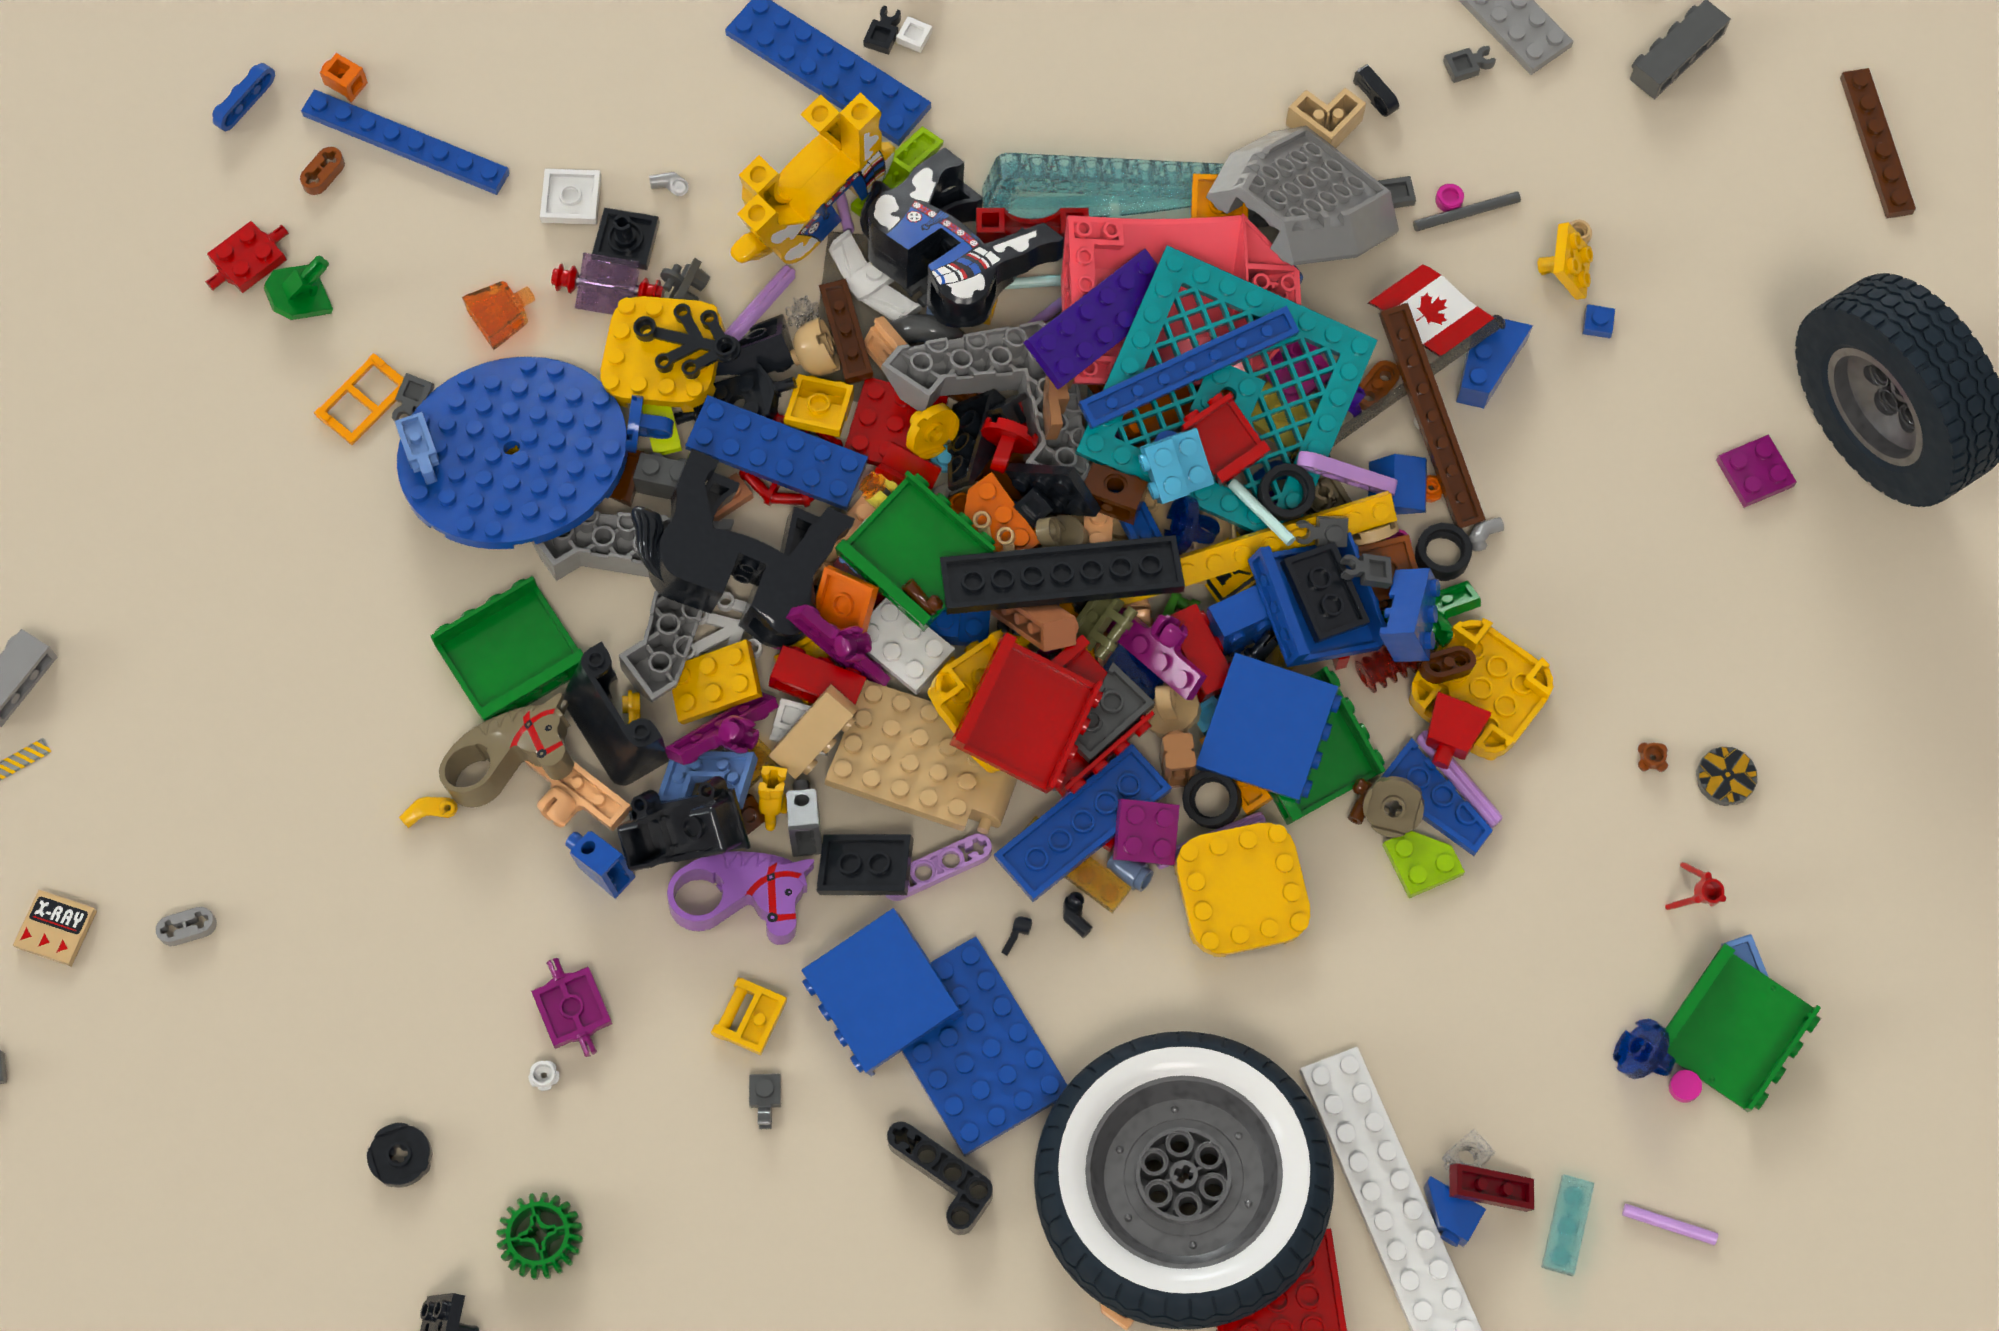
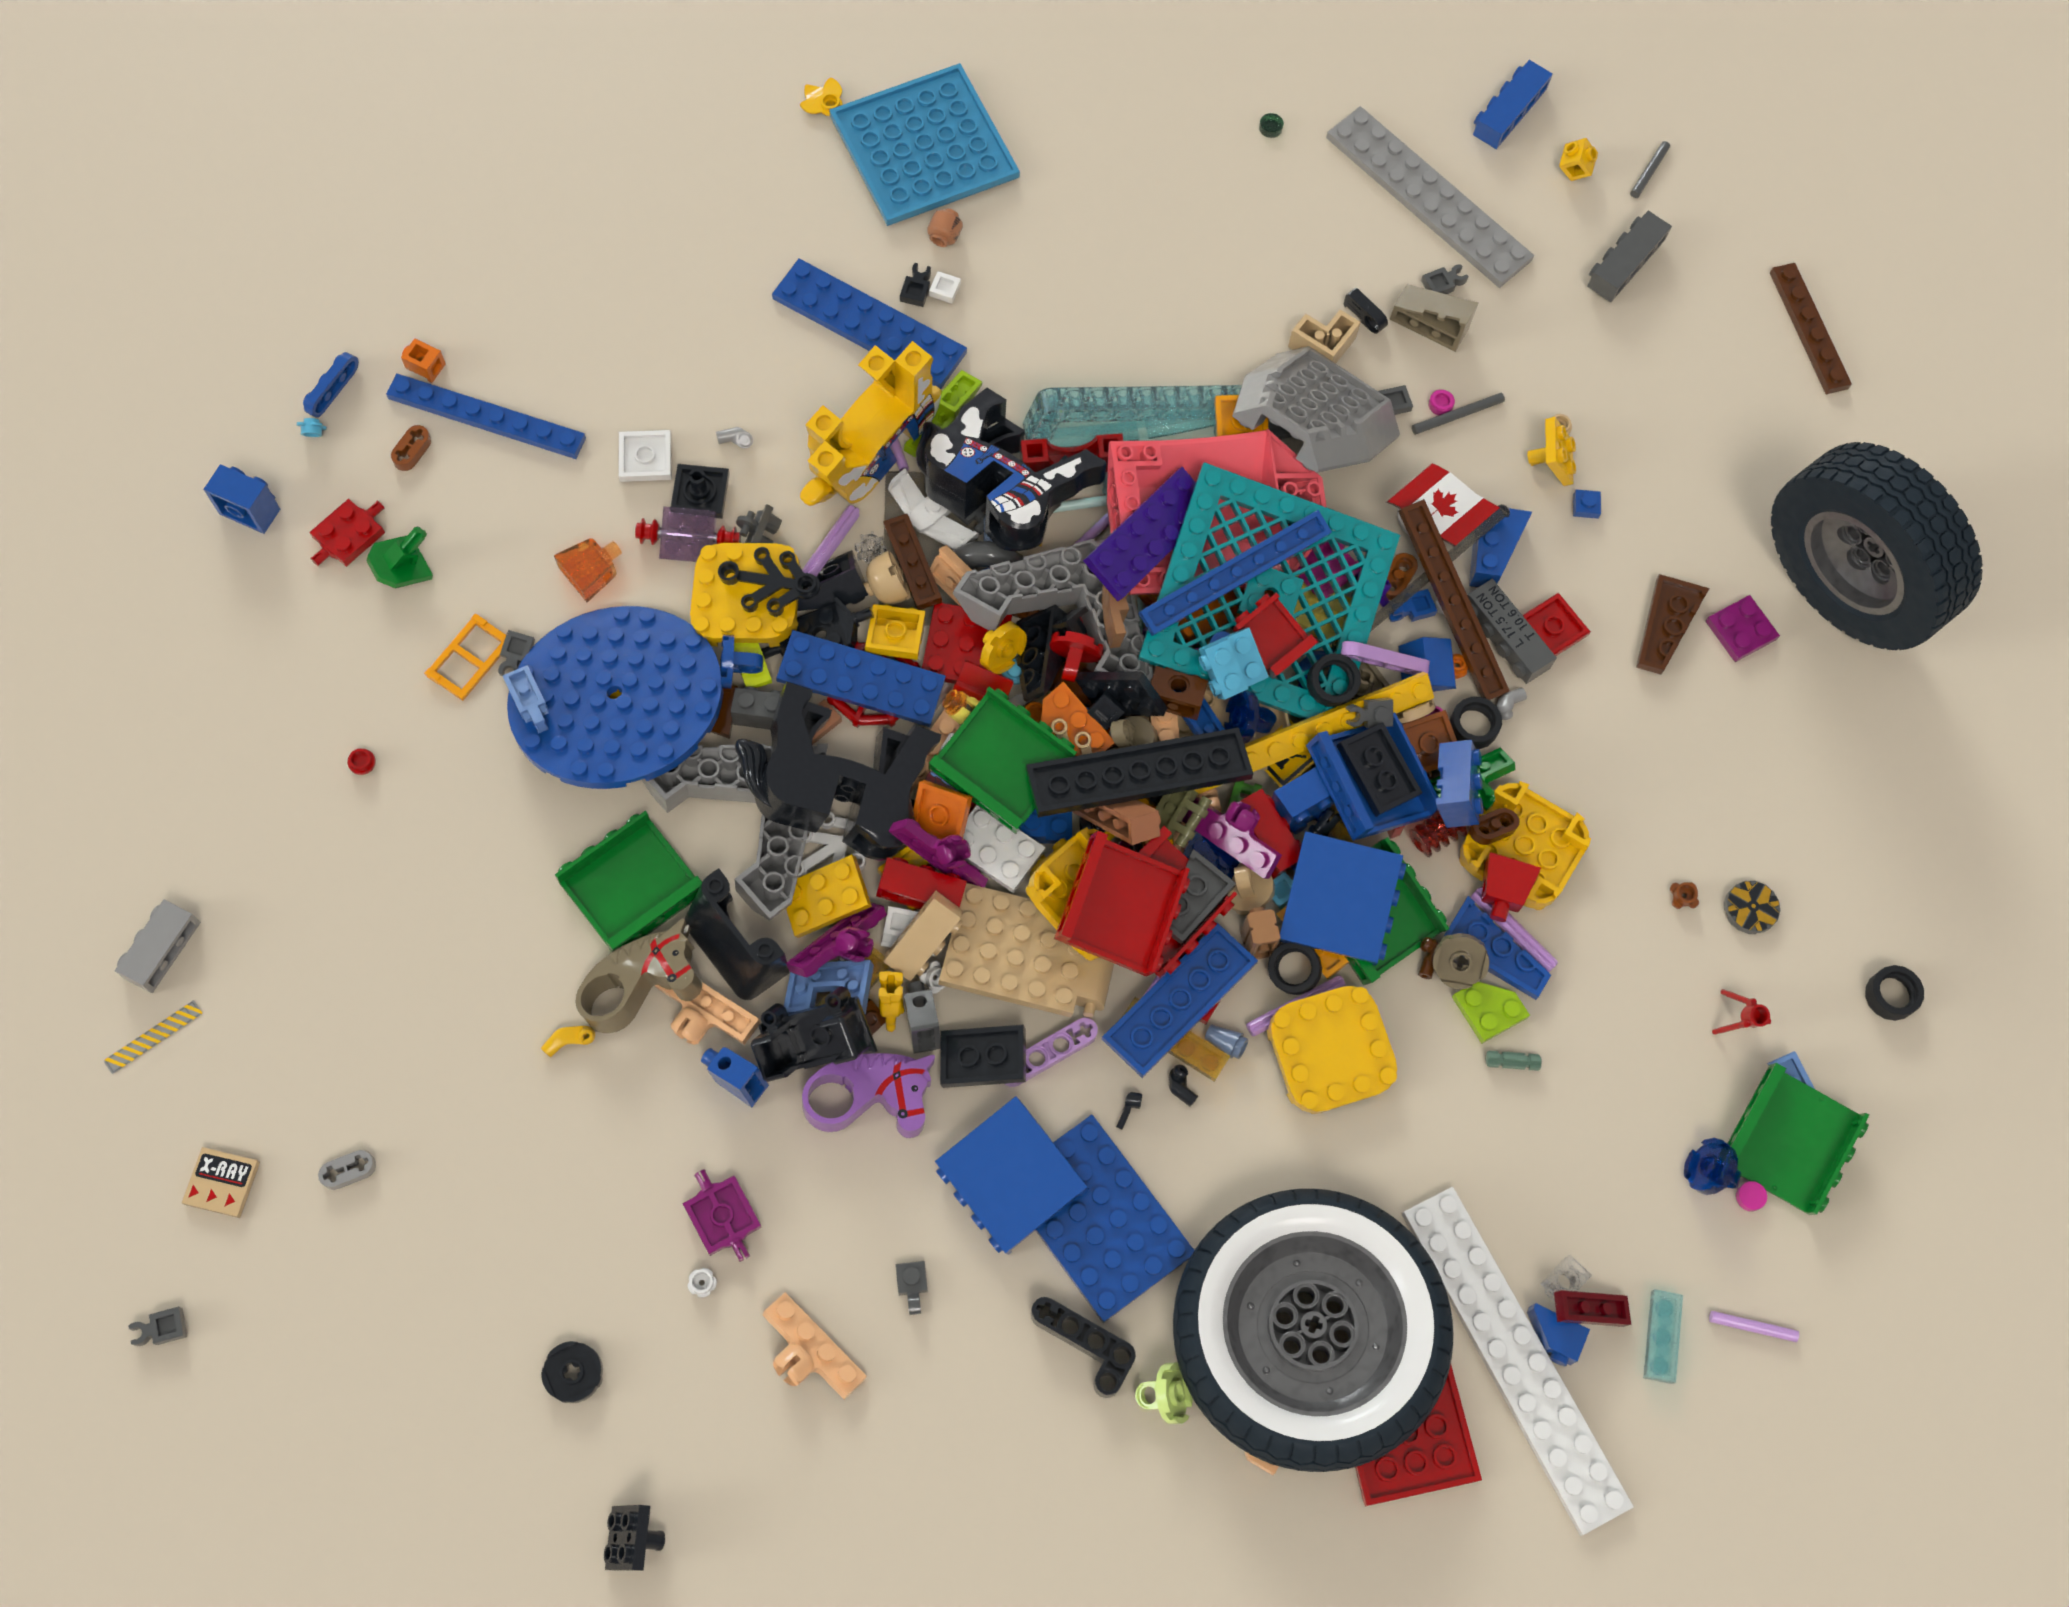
camera: 10 degrees left, 0 degrees up
(139, 212) = (242, 498): none -> blue brick
(218, 141) = (311, 427): none -> medium azure plate
(239, 501) = (361, 761): none -> red plate
(526, 1238) = (699, 1442): green gear -> none
(631, 705) = (749, 924): yellow plate -> none
(650, 1155) = (810, 1350): none -> light nougat plate
(758, 1020) = (898, 1211): yellow plate -> none
(814, 777) = (927, 977): none -> white plate
(930, 605) = (1020, 809): reddish brown arm -> none
(1024, 1235) = (1170, 1394): none -> yellowish green tile
(1146, 832) = (1240, 1004): magenta plate -> none
(1261, 512) = (1313, 700): light aqua bar -> none
(1371, 569) = (1419, 745): dark grey plate -> none
(1394, 420) = (1417, 607): none -> blue plate
(1440, 918) = (1513, 1060): none -> sand green axle
(1452, 101) = (1434, 315): none -> dark tan wedge
(1493, 455) = (1510, 632): none -> dark grey brick
(1543, 453) = (1557, 624): none -> red plate
(1673, 455) = (1668, 618): none -> reddish brown wing
(1885, 863) = (1908, 979): none -> black tyre

